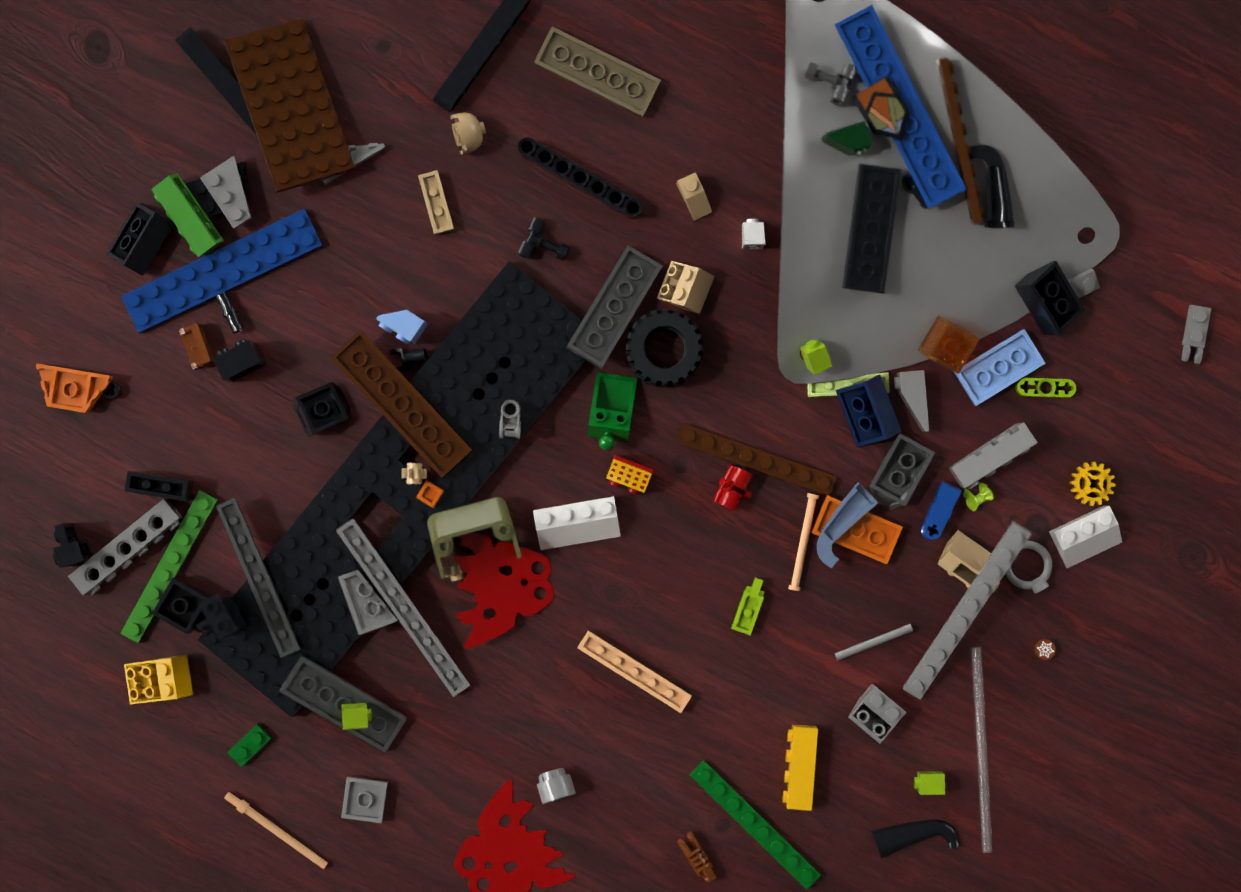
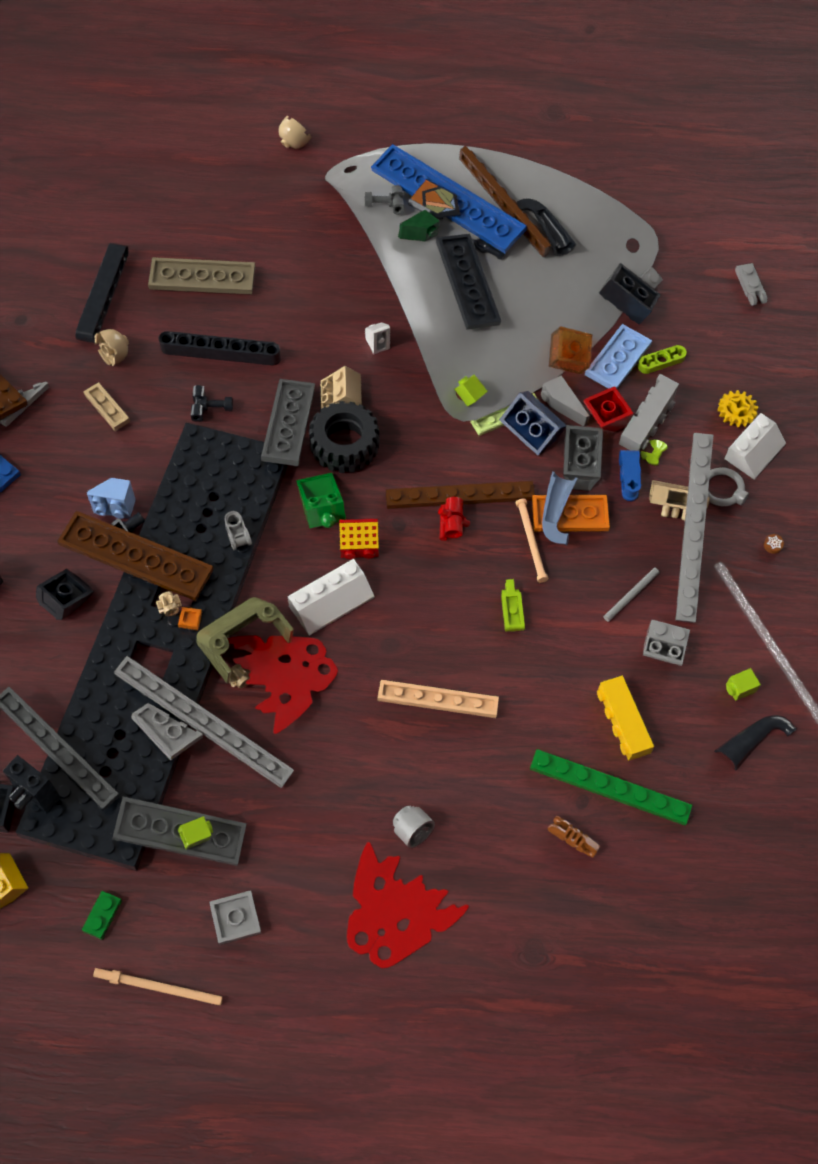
camera: 30 degrees left, 25 degrees down
(694, 196) = (317, 327): tan slope -> none
(952, 432) = (609, 409): none -> red slope

